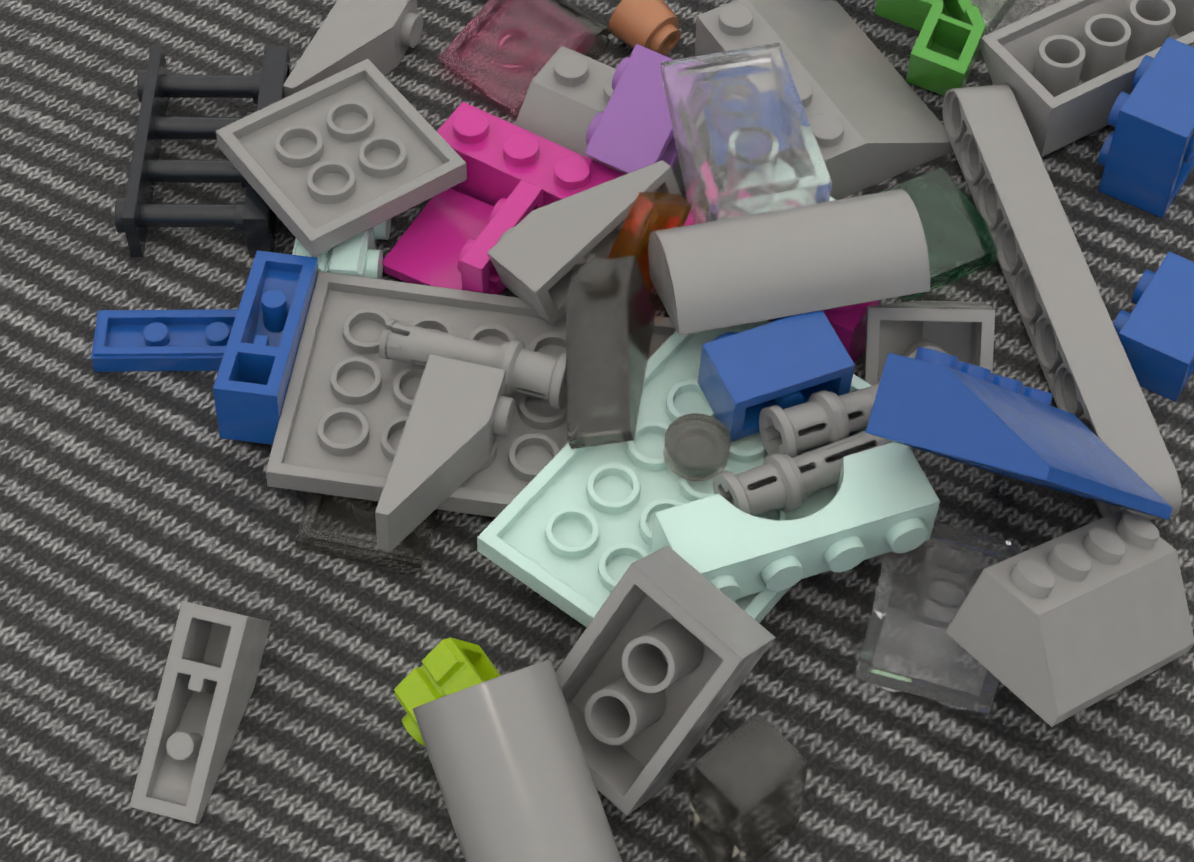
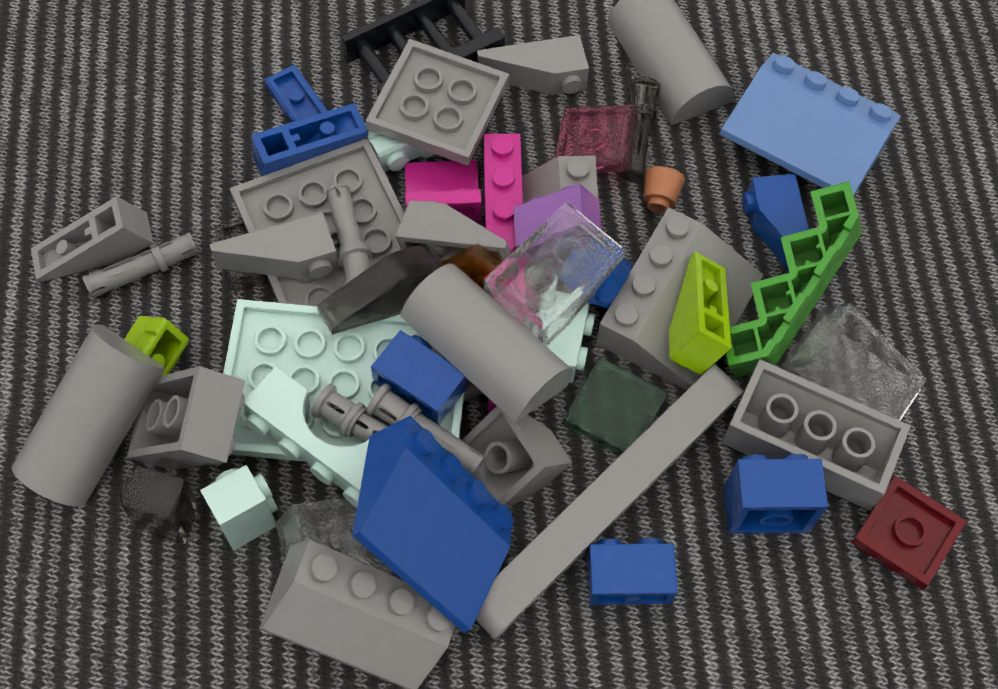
camera: 55 degrees right, 10 degrees up
(294, 637) = (140, 265): none -> light grey pin
(696, 447) = (352, 367): clear smoke tile -> none
(815, 692) = (241, 505): none -> light aqua brick
(884, 65) = (701, 316): none -> lime slope

